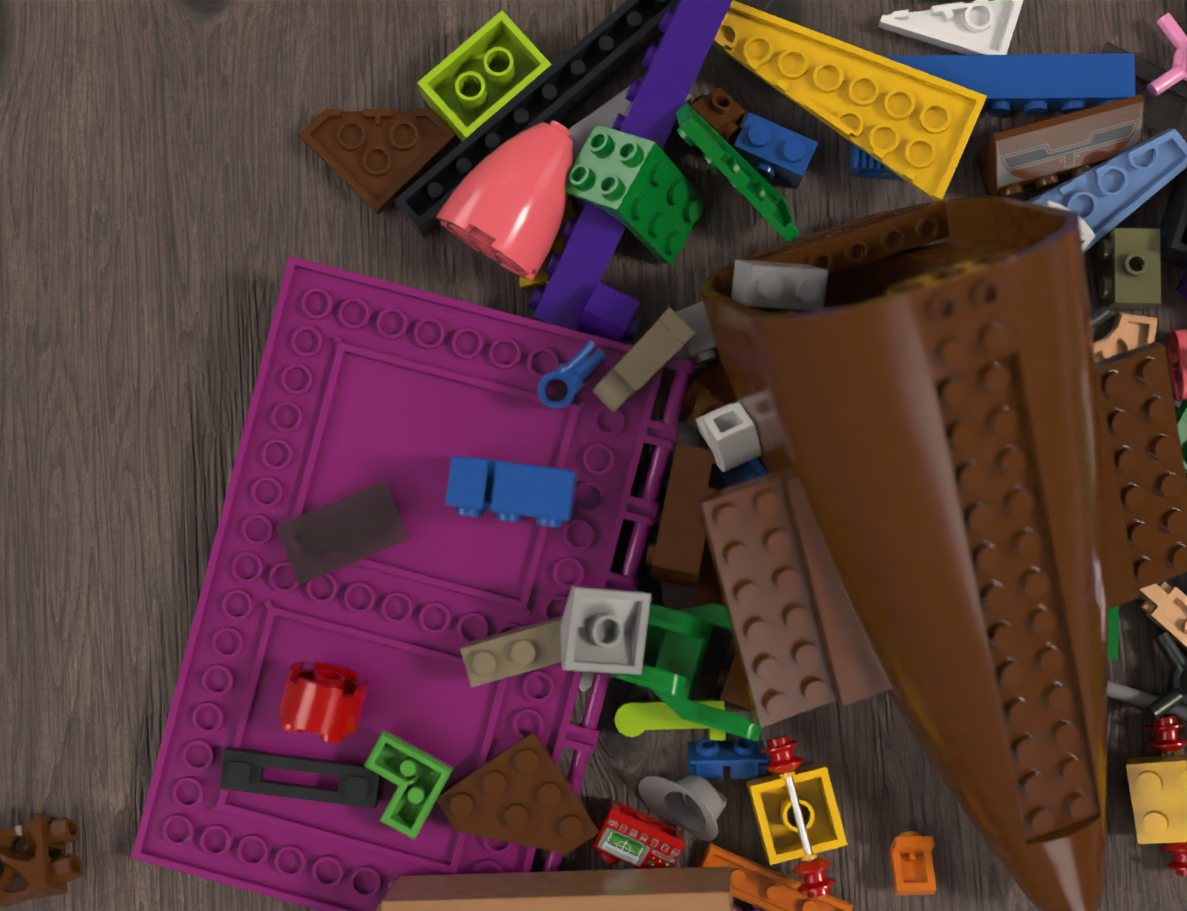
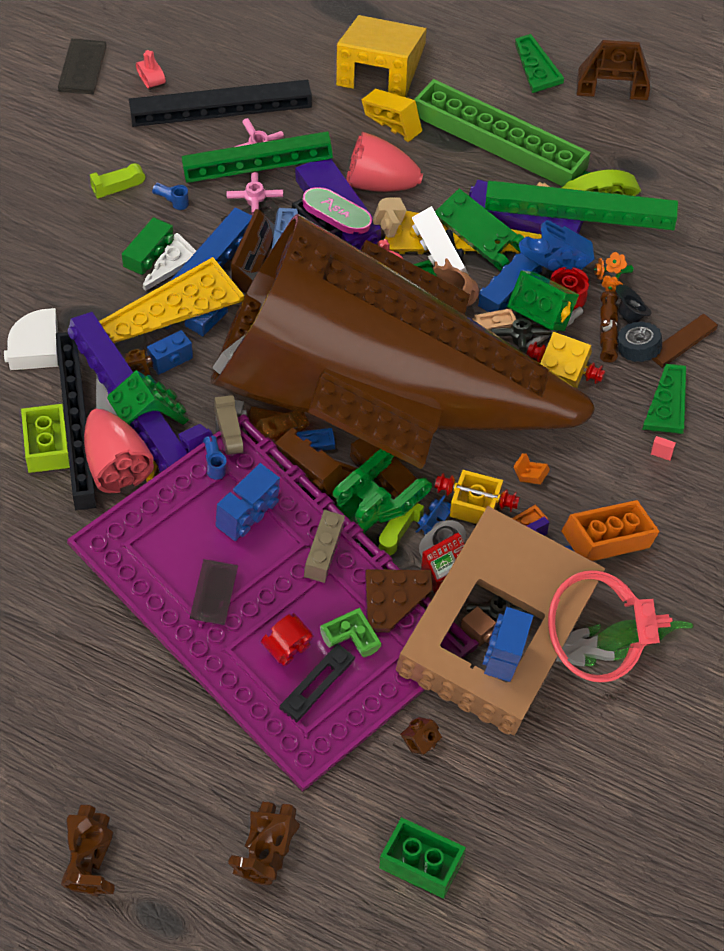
camera: 65 degrees left, 30 degrees down
(378, 148) = (38, 501): reddish brown plate -> none
(604, 630) = (338, 498): light grey slope -> none
(730, 435) = (287, 412): white brick -> none
(739, 172) = (172, 361): green wing -> none

